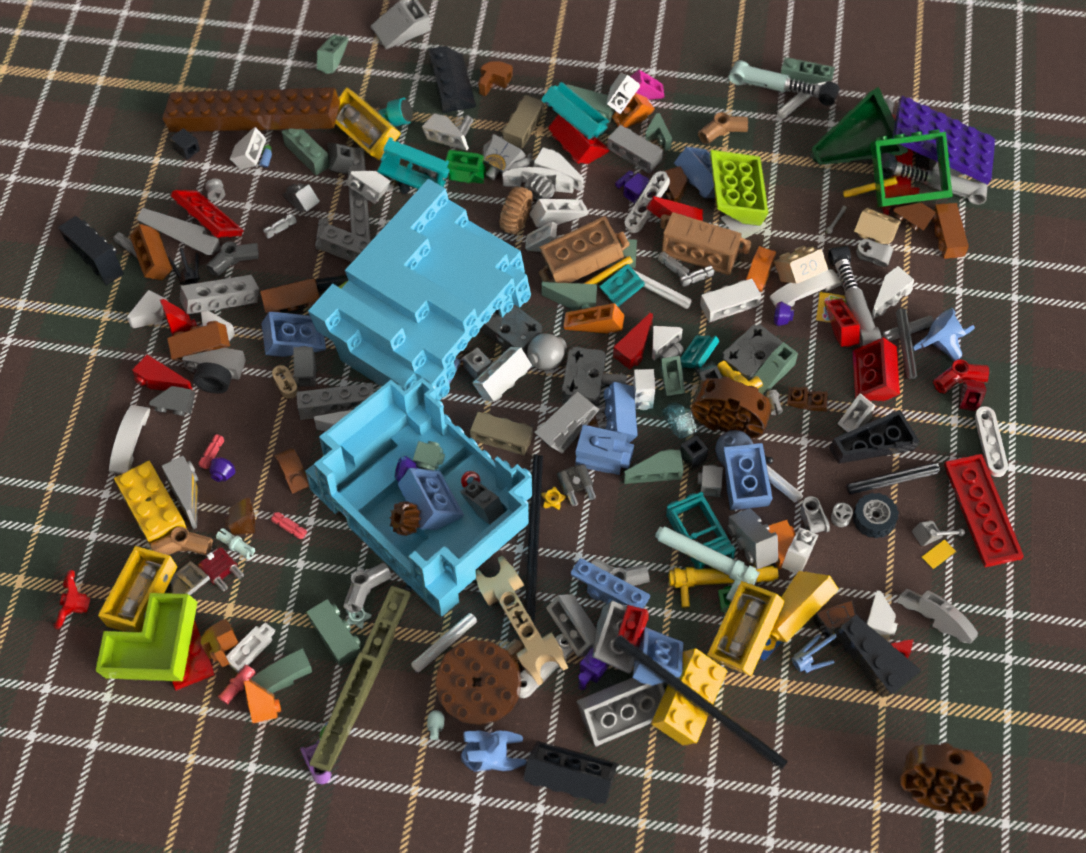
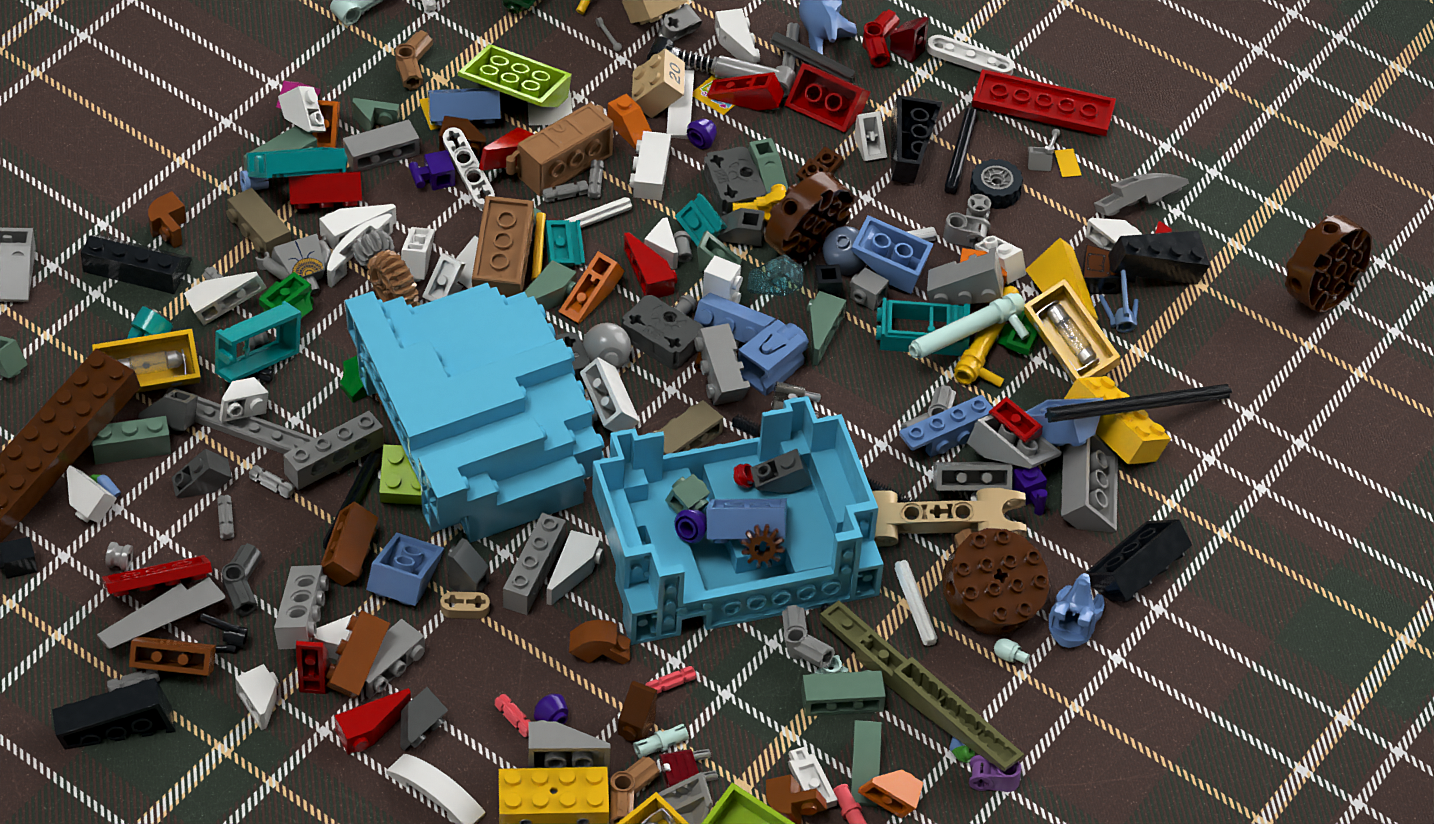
camera: 65 degrees left, 10 degrees down
(212, 378) = (418, 664): black tyre -> none

